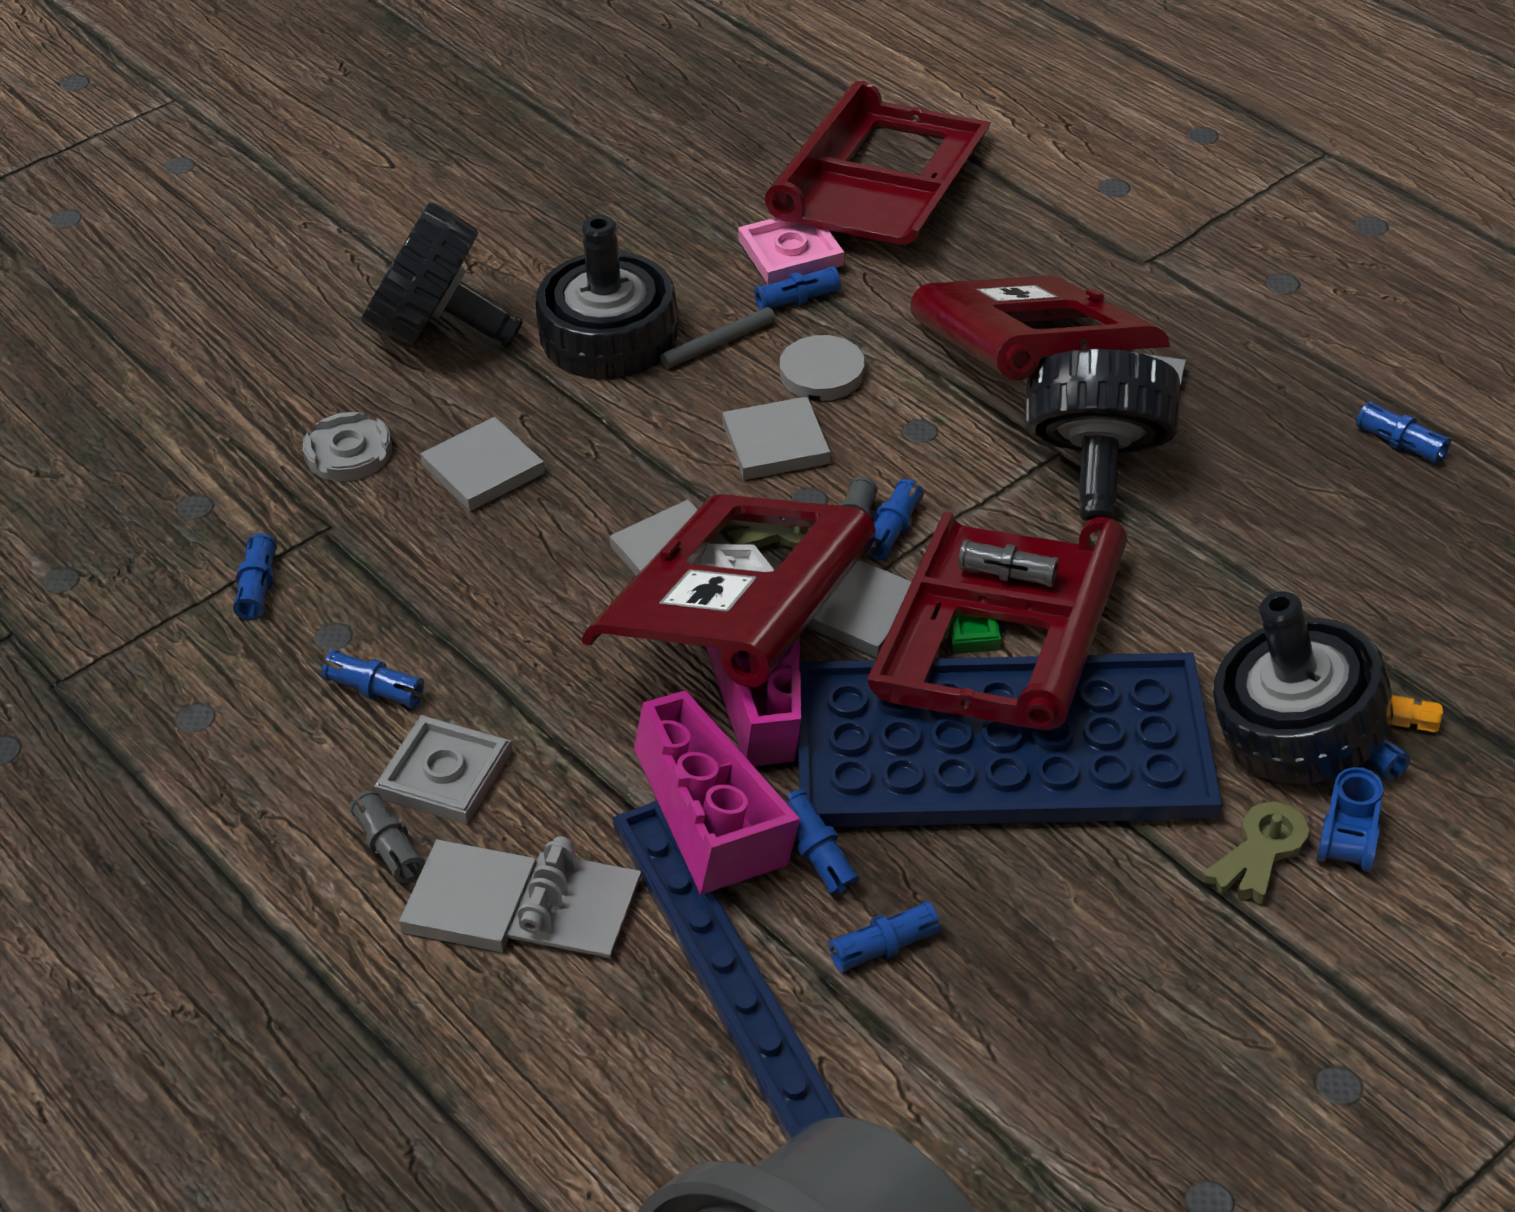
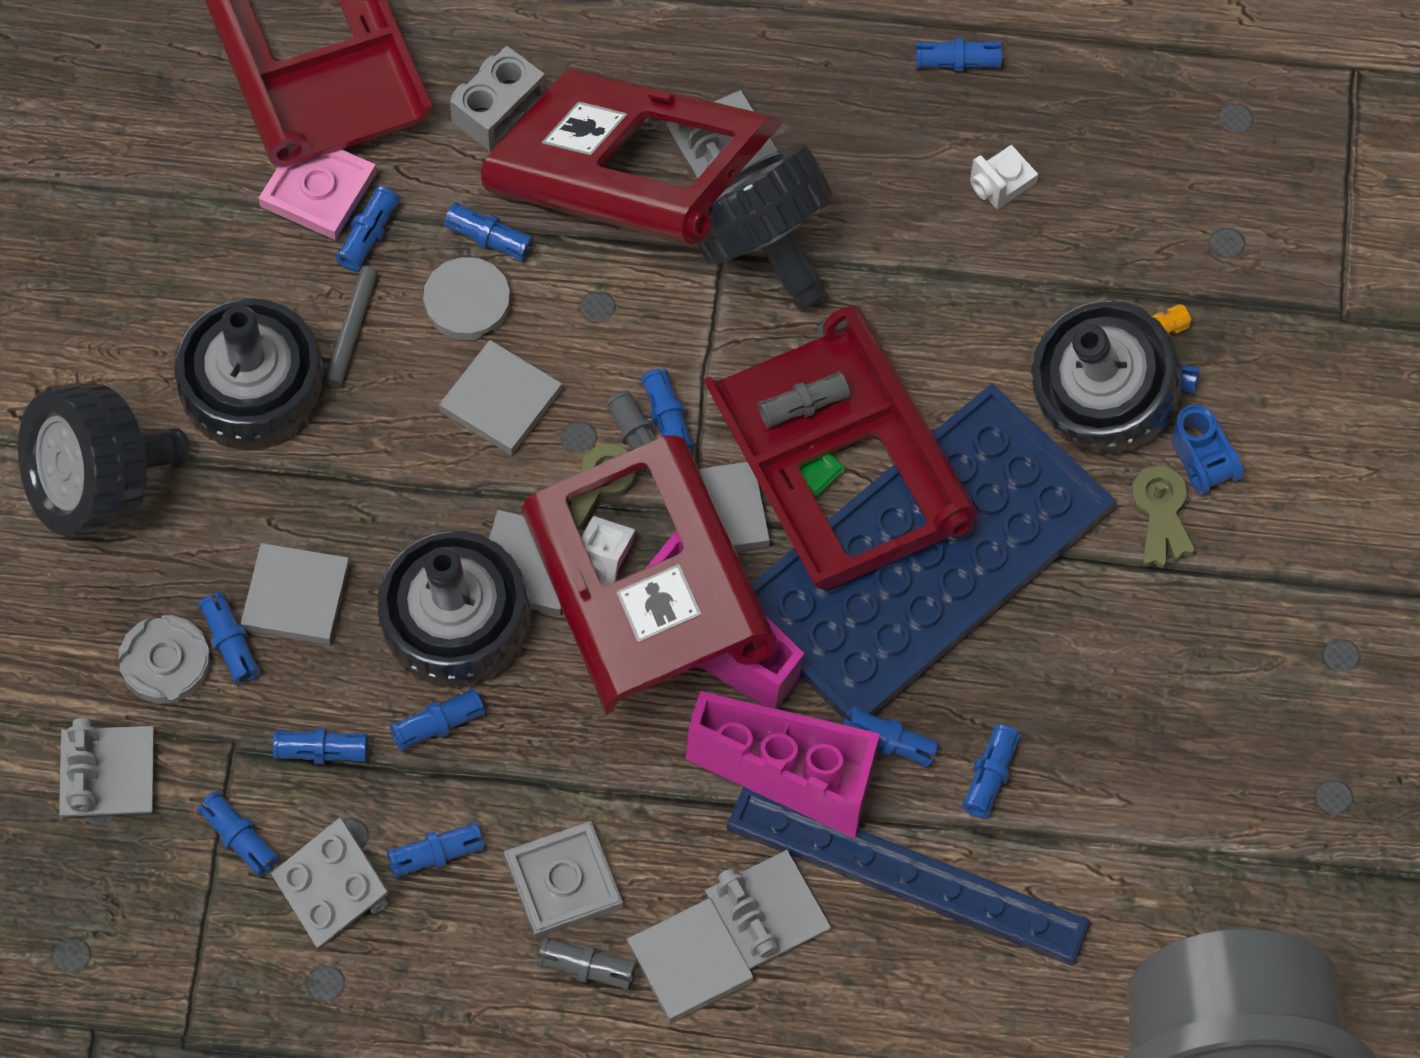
camera: 45 degrees left, 20 degrees up
(221, 479) = (106, 770): none -> light grey hinge
(279, 648) = (330, 883): none -> light grey hinge
(380, 561) = (320, 746): none -> blue pin
(401, 457) = (229, 638): none -> blue pin
(480, 597) = (437, 719): none -> blue pin
(572, 525) = (454, 608): none -> black wheel
(884, 336) = (488, 231): none -> blue pin
(982, 256) = (505, 101): none -> light grey brick
(1358, 530) = (1002, 177): none -> white bracket

